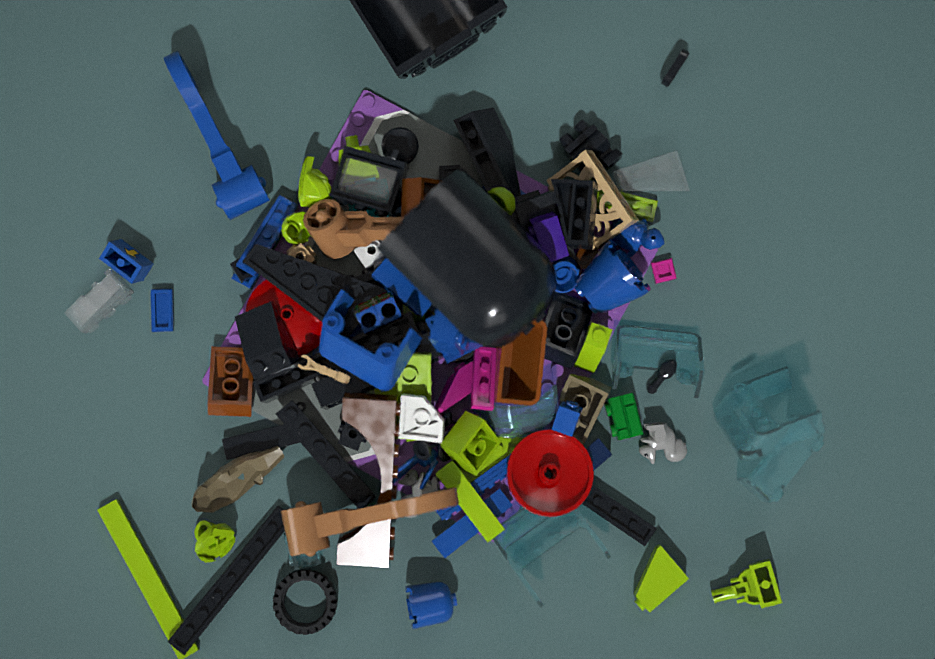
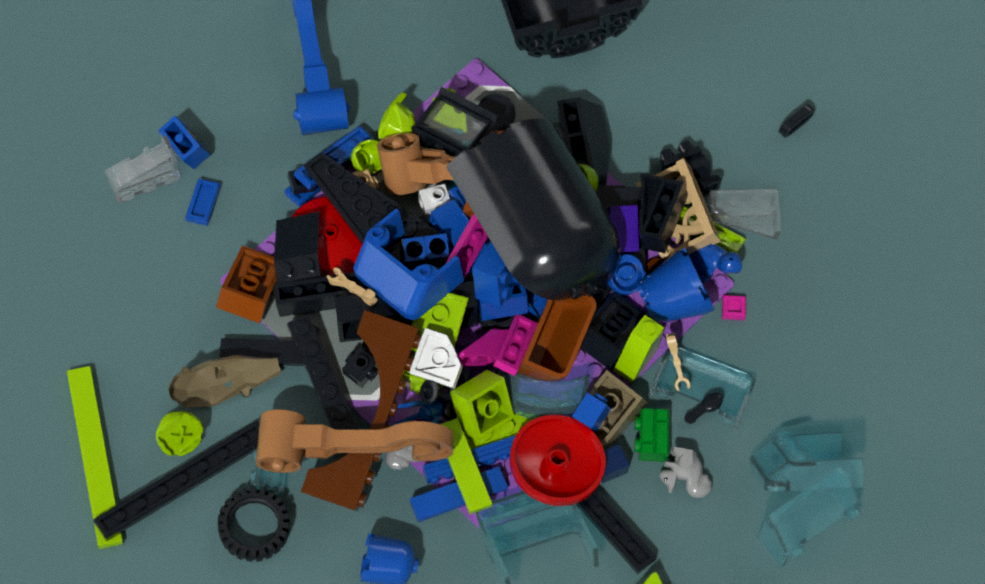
camera: 15 degrees right, 20 degrees down
(414, 310) = (469, 244): none -> dark pink plate
(622, 336) = (673, 346): none -> tan piece

